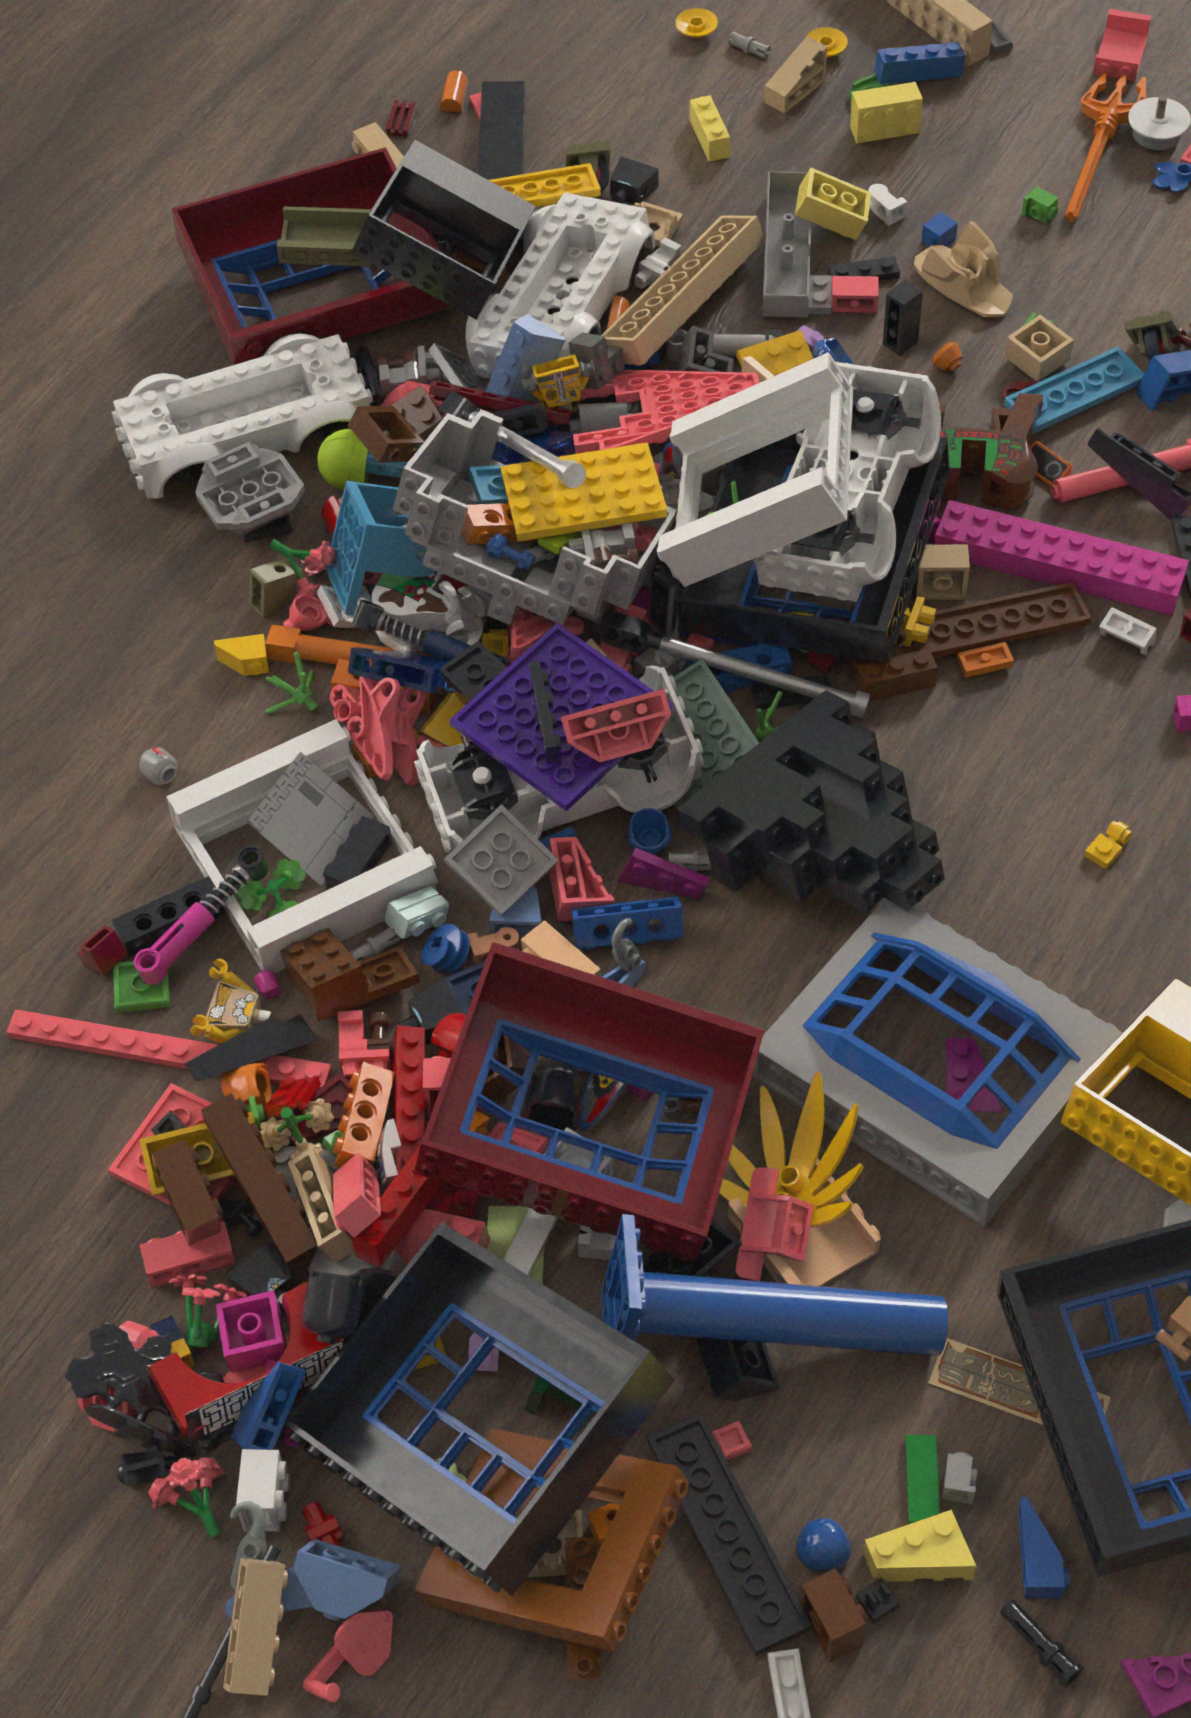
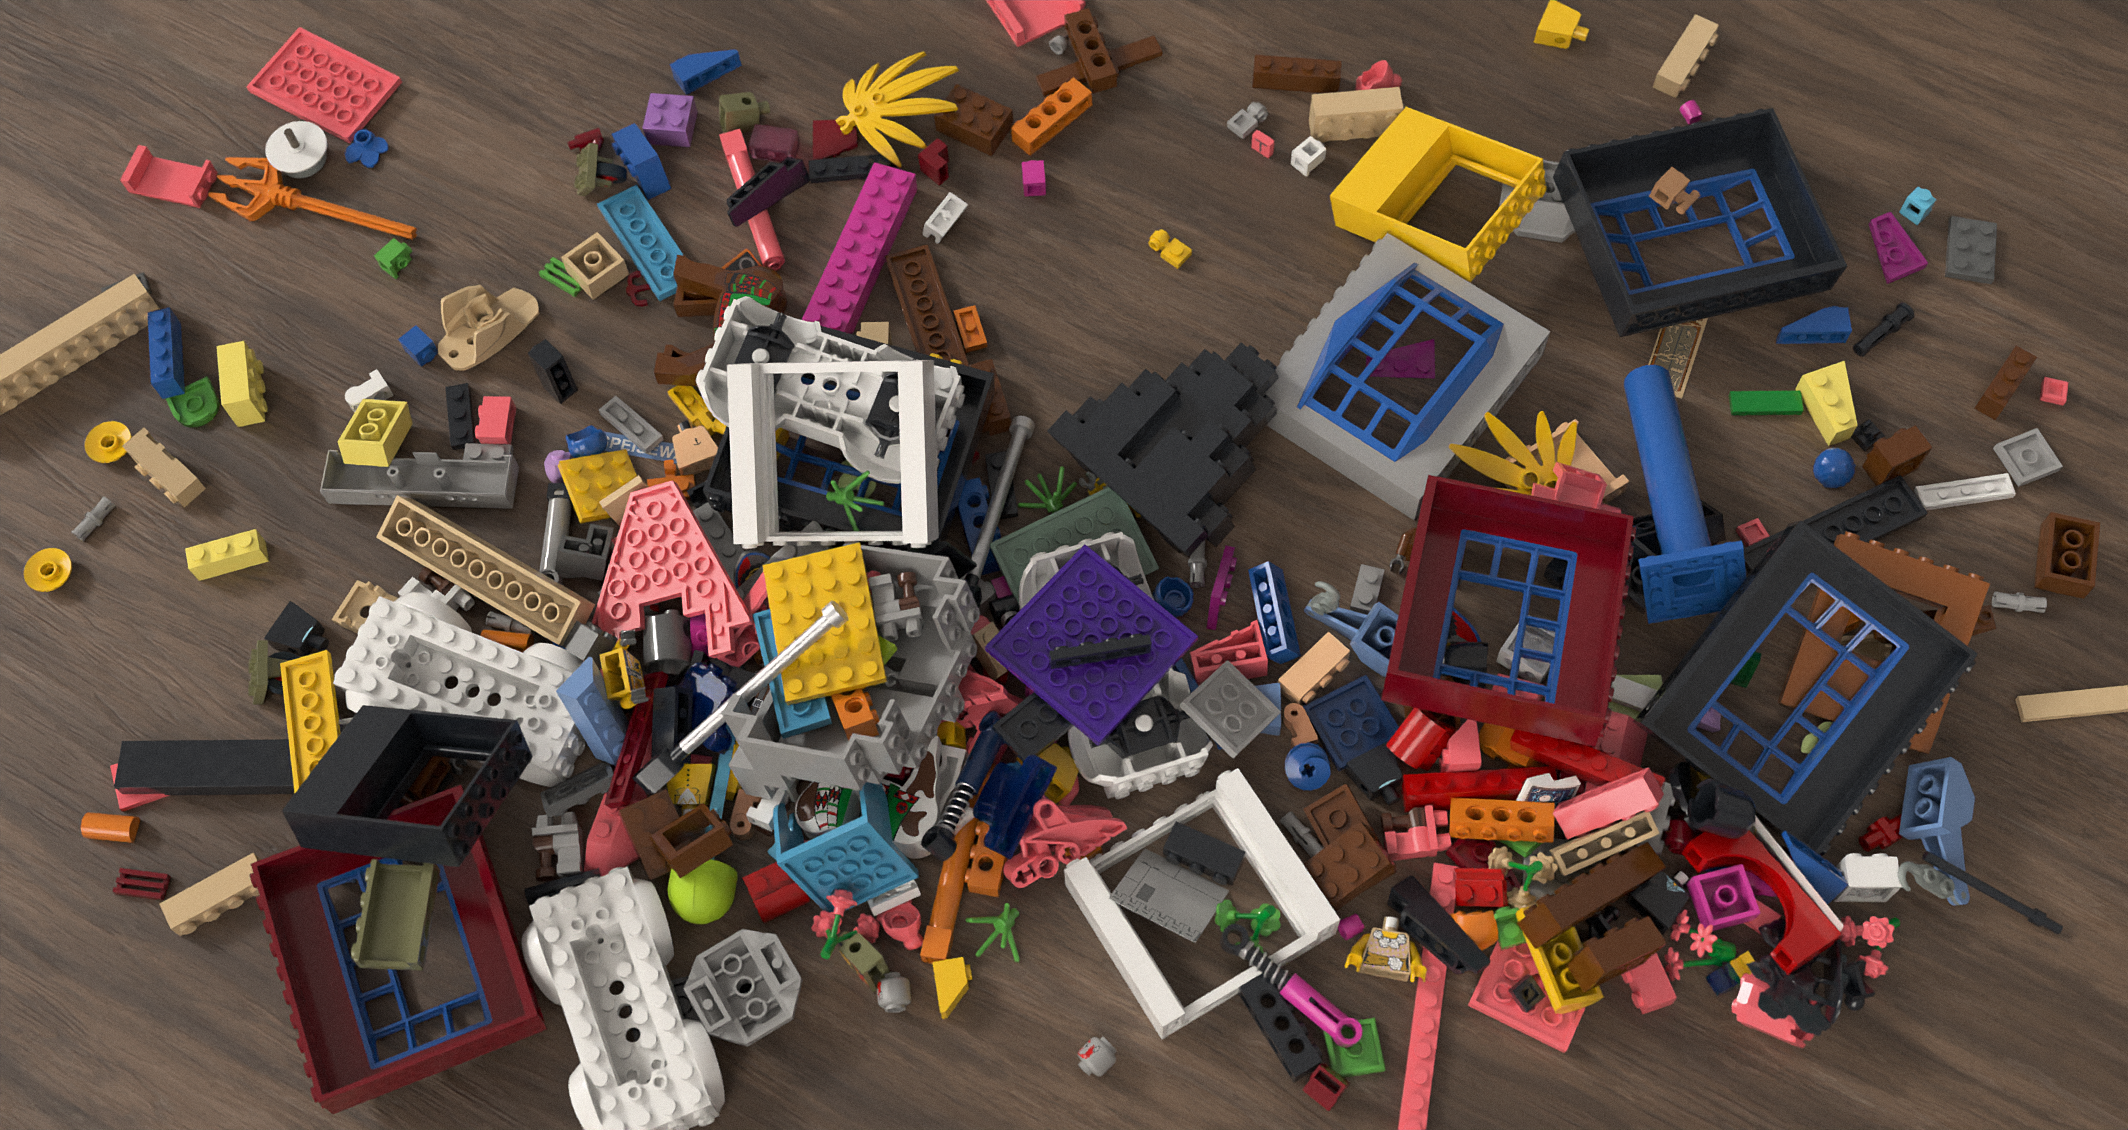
camera: 90 degrees left, 10 degrees up
(241, 612) = (894, 992): none -> light grey head
(255, 1626) = (1991, 868): tan brick -> none
(360, 1640) = (1992, 824): coral piece -> none
(416, 912) = (1275, 794): light aqua brick -> none
(461, 611) = (947, 750): light grey animal -> none
(498, 546) = (899, 681): blue bar -> none
(618, 726) = (1118, 582): coral wedge -> none
(948, 357) = (594, 343): orange cone -> none
(959, 1478) = (1764, 376): light grey brick -> none

